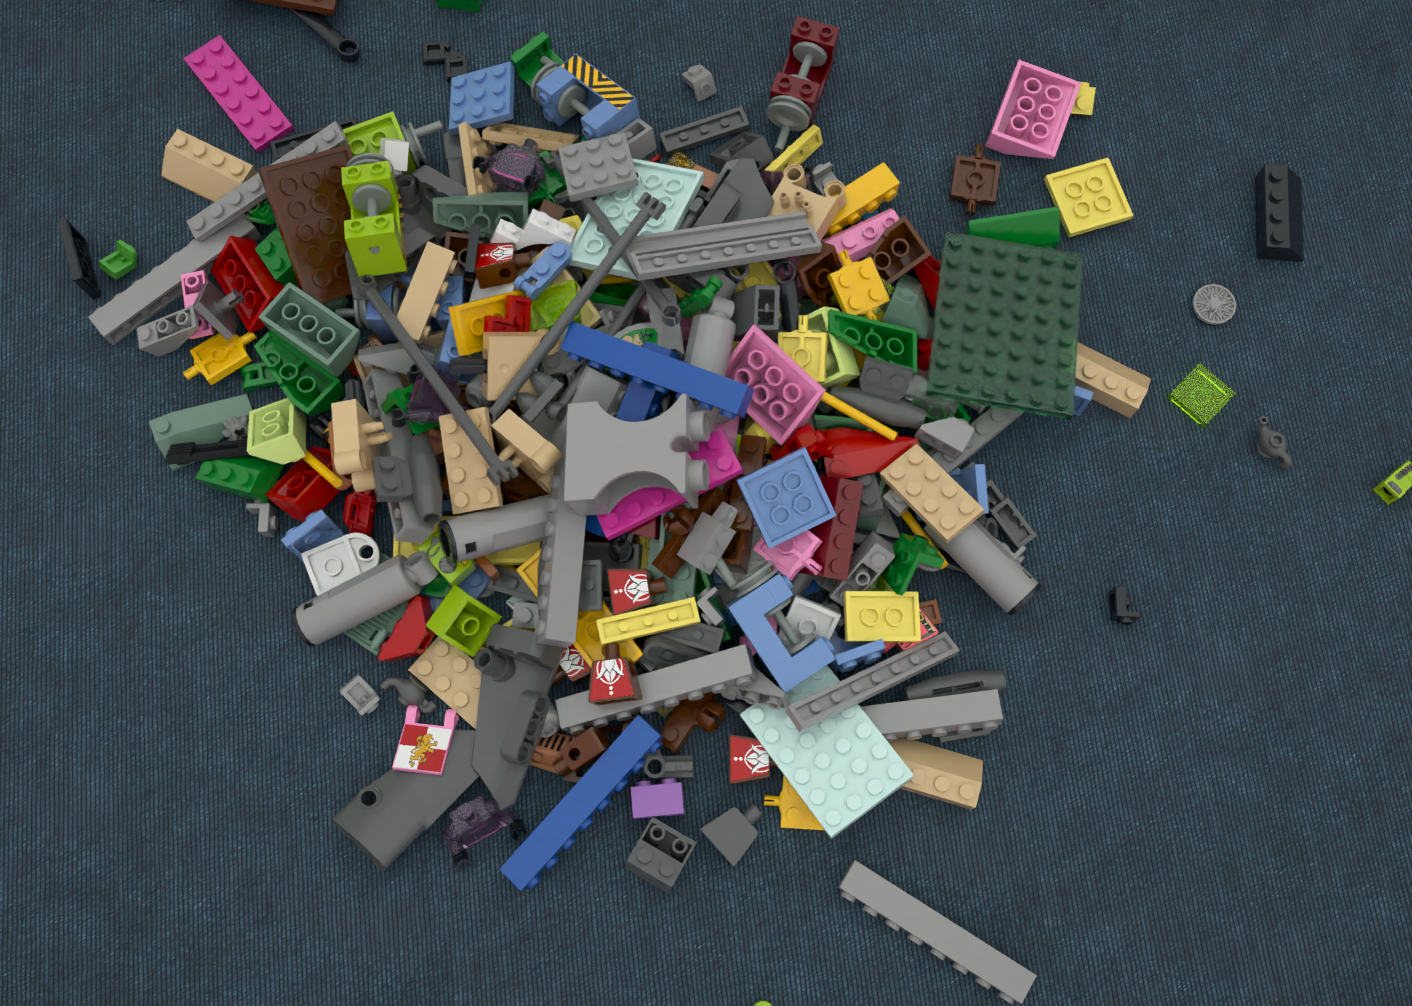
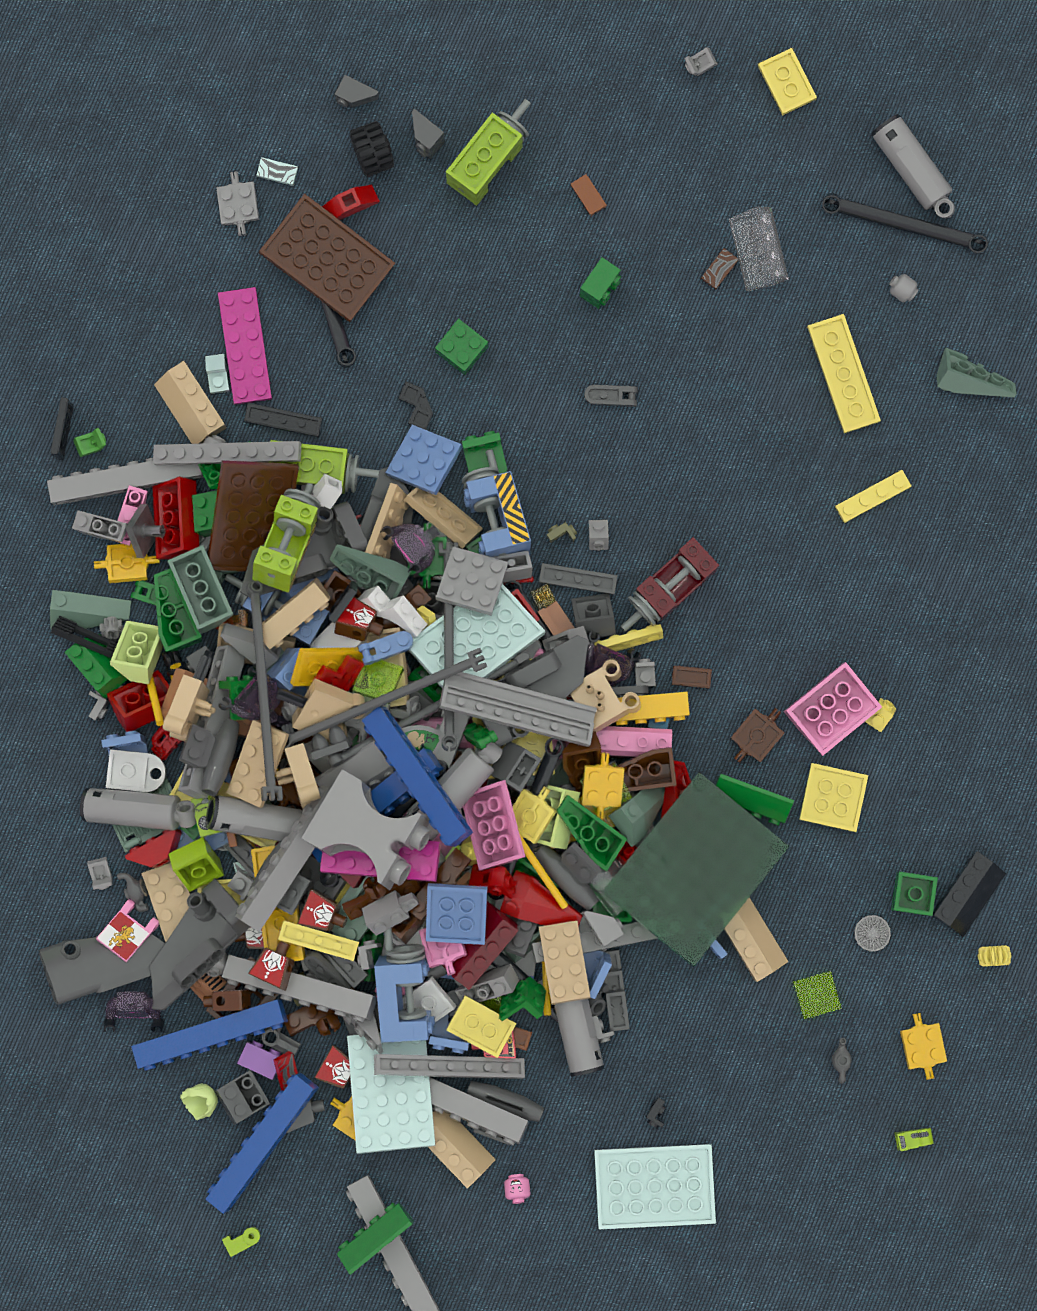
camera: 30 degrees right, 10 degrees up
(224, 133) = (217, 373): none -> light aqua slope
(614, 887) = (200, 1100): none -> yellowish green hair
(658, 97) = (557, 531): none -> olive bracket
(696, 796) = (285, 1068): none -> red tile
(713, 895) = (261, 1143): none -> blue brick
(869, 161) = (691, 677): none -> reddish brown tile
(909, 926) = (375, 1237): none -> green slope
(1027, 777) = (517, 1188): none -> bright pink head
(1171, 688) = (655, 1186): none -> light aqua plate
(1231, 240) = (914, 893): none -> green brick
(1341, 384) = (923, 1046): none -> yellow plate
(1350, 255) = (994, 956): none -> light yellow gear

